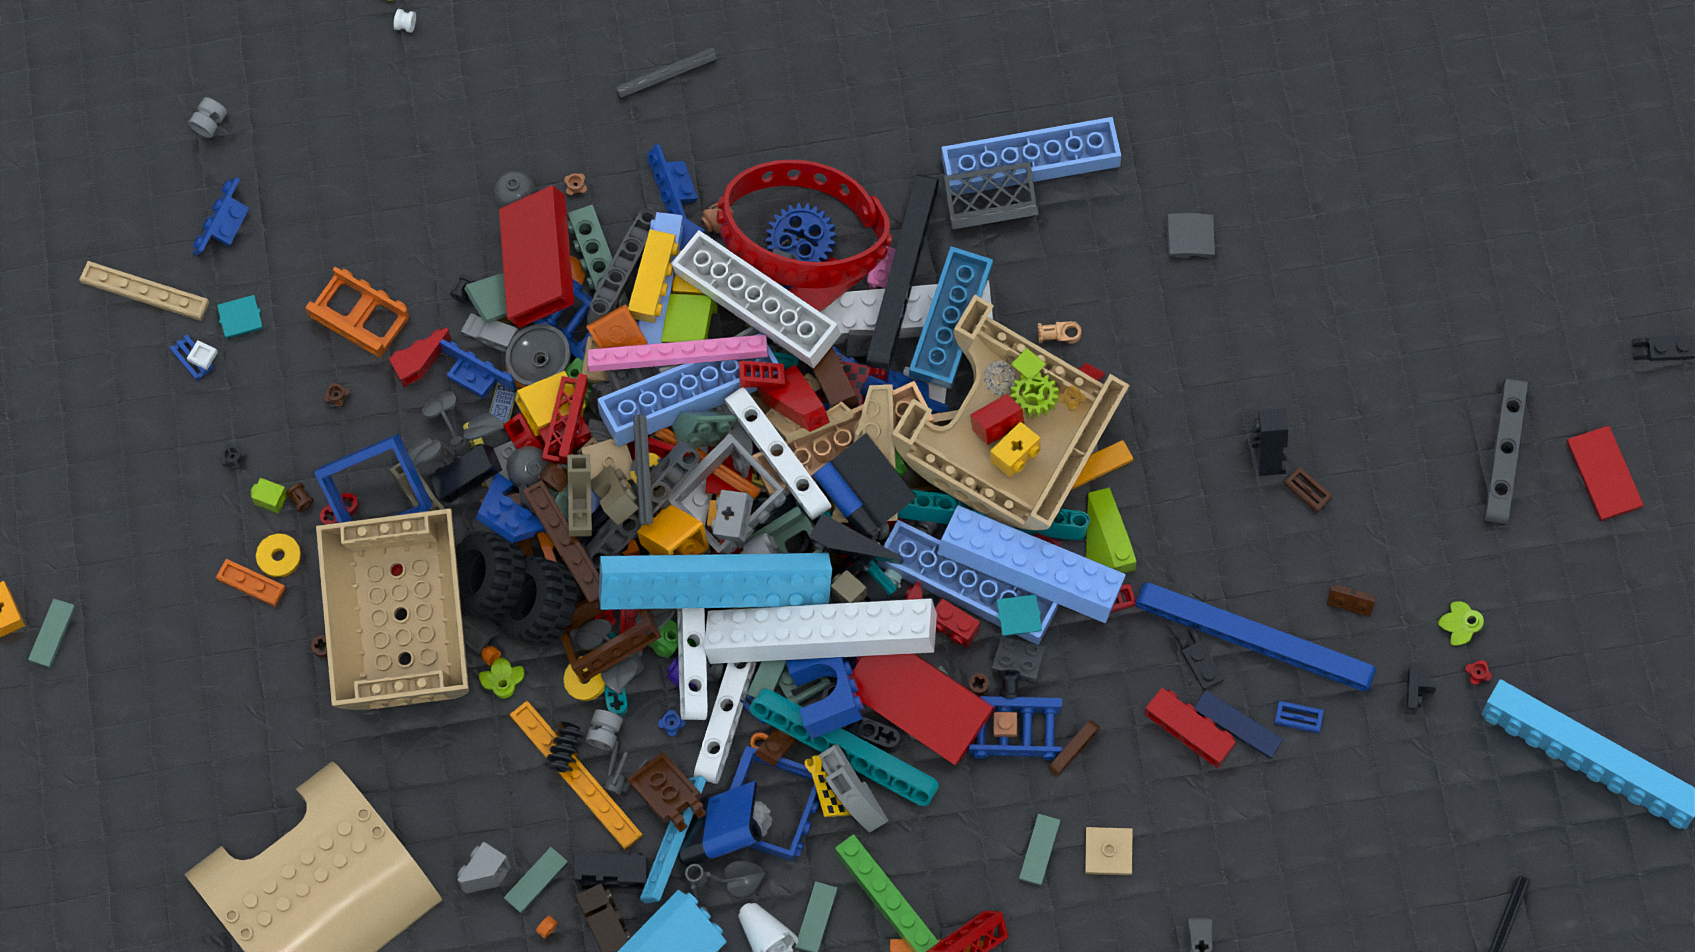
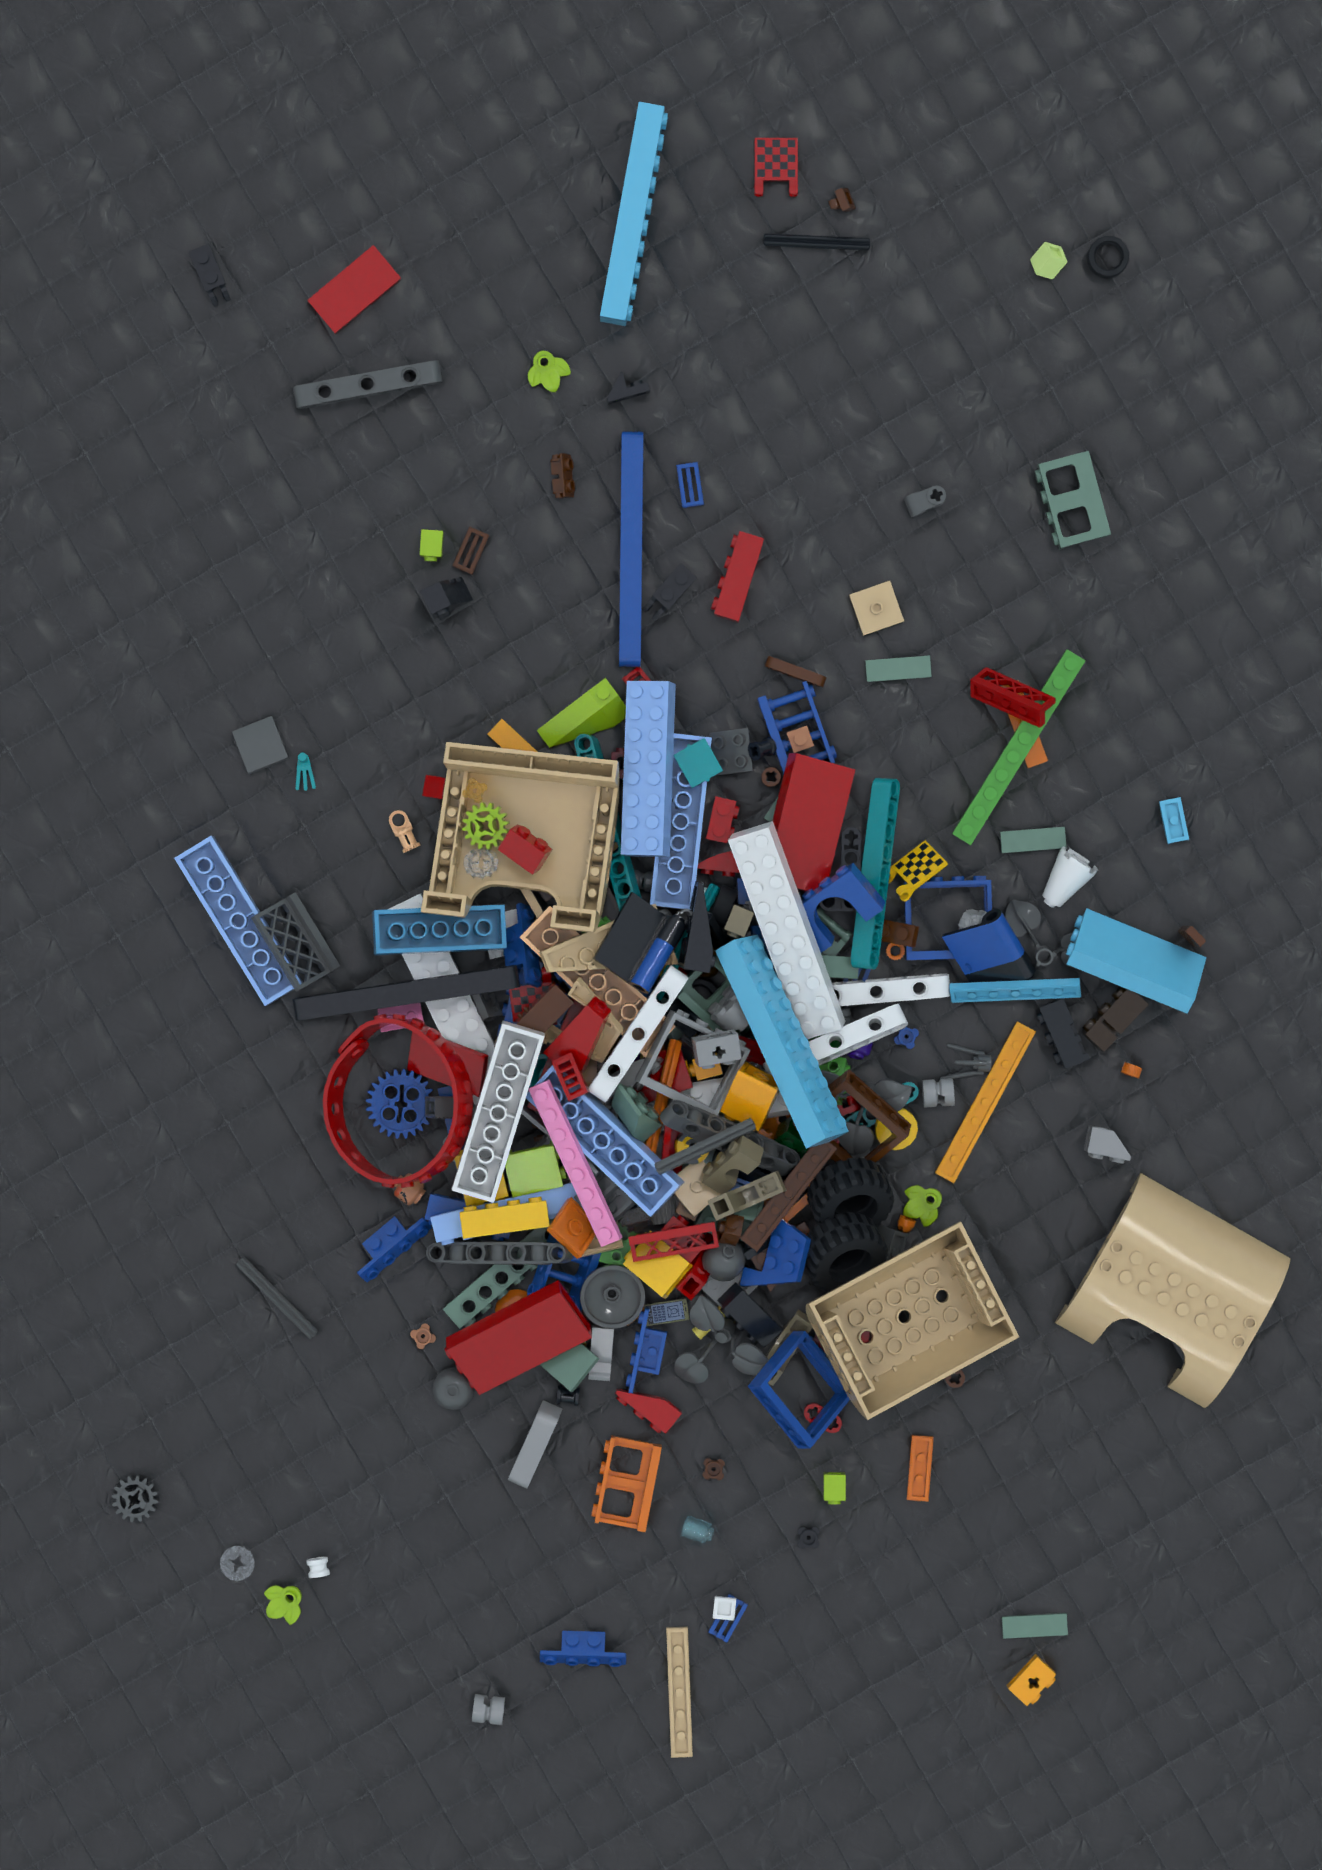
camera: 115 degrees left, 20 degrees up
(240, 316) = (670, 1592): teal piece -> none
(269, 547) = (889, 1466): yellow tile -> none
(286, 357) = (697, 1529): none -> clear light blue brick
(304, 501) = (825, 1458): reddish brown bush -> none
(433, 243) = (535, 1444): none -> light grey beam
(536, 880) = (1092, 1097): sand green tile -> none
(564, 747) = (970, 1118): black piece -> none
(667, 791) = (974, 1013): reddish brown tile -> none
(850, 791) = (914, 851): light grey slope -> none
(1015, 450) = (536, 821): yellow brick -> none
(1028, 364) = (459, 841): lime sticker -> none
(1154, 268) = (303, 765): none -> teal piece
(1238, 725) = (717, 536): dark blue tile -> none
(1327, 453) = (431, 545): none -> lime brick
(1480, 666) = (582, 340): red plate -> none
(1599, 920) = (776, 161): none -> red flag

